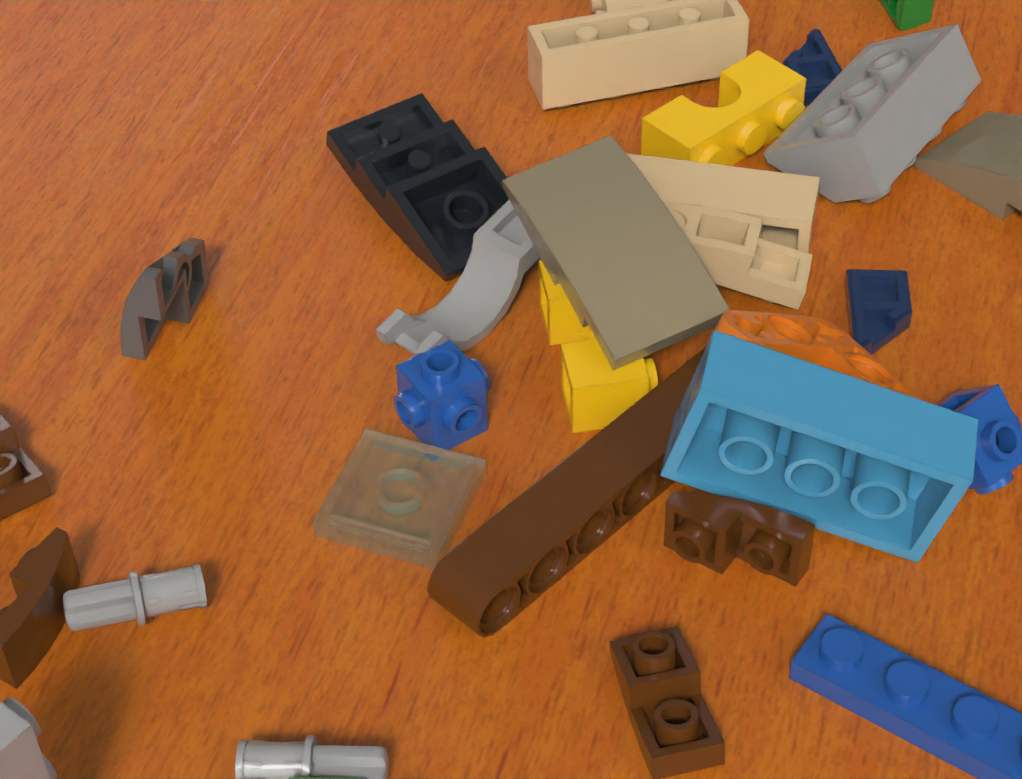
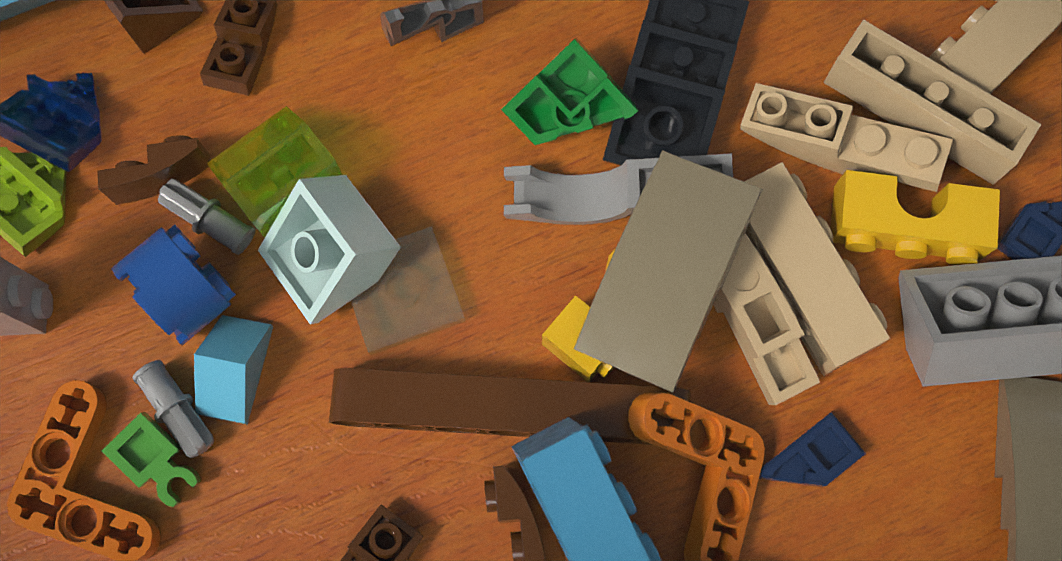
camera: 50 degrees right, 30 degrees up
(165, 498) = (268, 163): none -> clear neon green slope
(187, 643) = (173, 285): none -> blue brick
(295, 505) = (327, 245): none -> light aqua slope
(329, 686) = (230, 368): none -> medium azure slope
(363, 250) = (568, 97): none -> green slope
(442, 396) = (486, 269): blue brick -> none
(590, 115) = (837, 140): none -> tan slope

